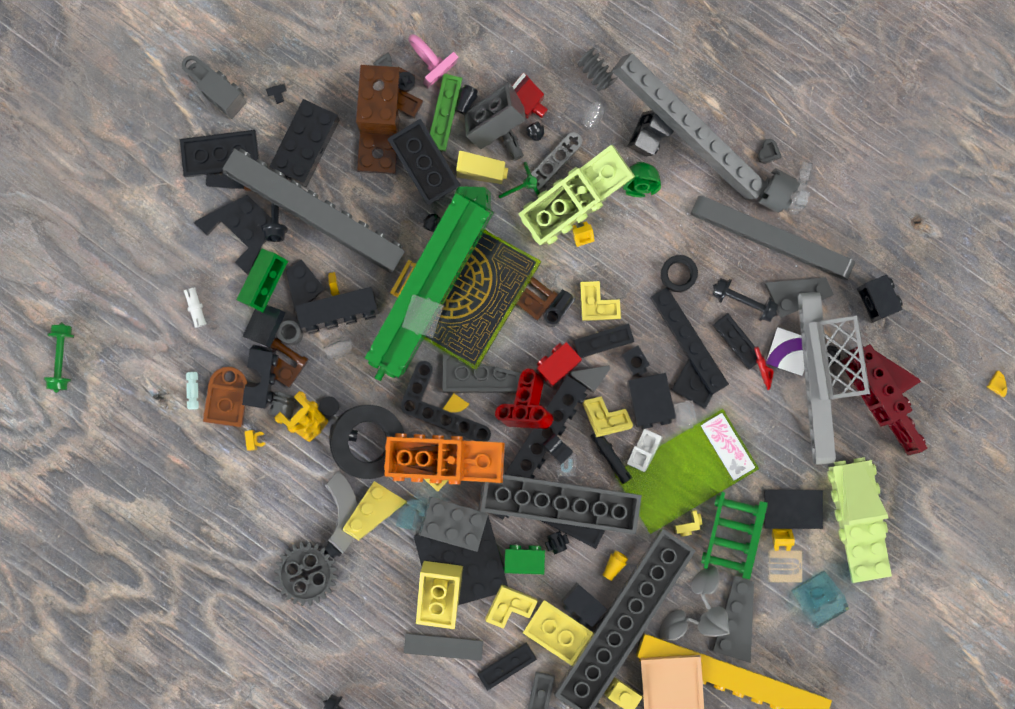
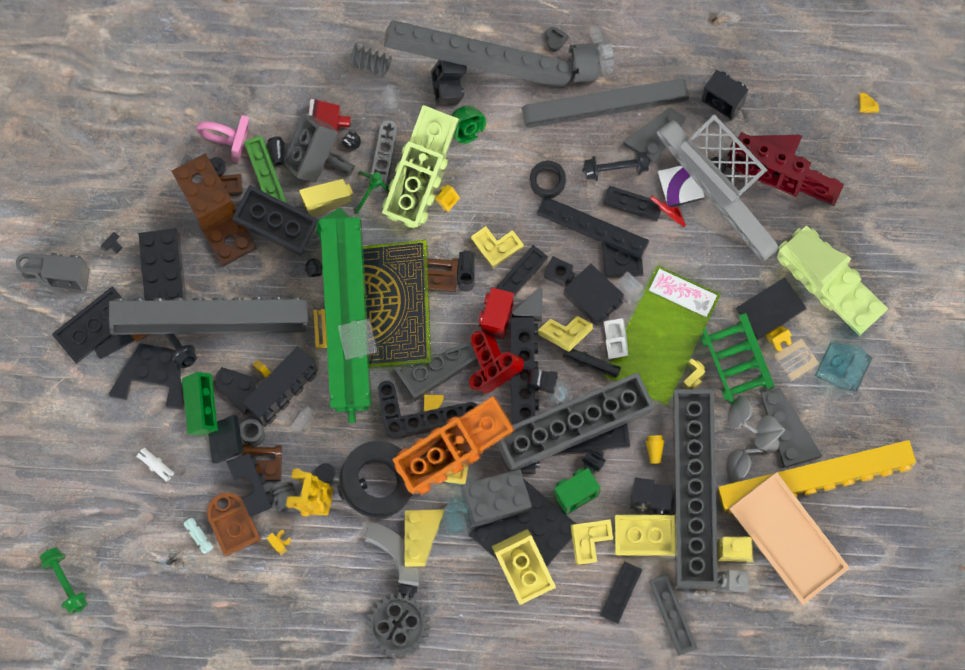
camera: 25 degrees left, 10 degrees down
(443, 646) = (556, 611): dark grey tile -> none

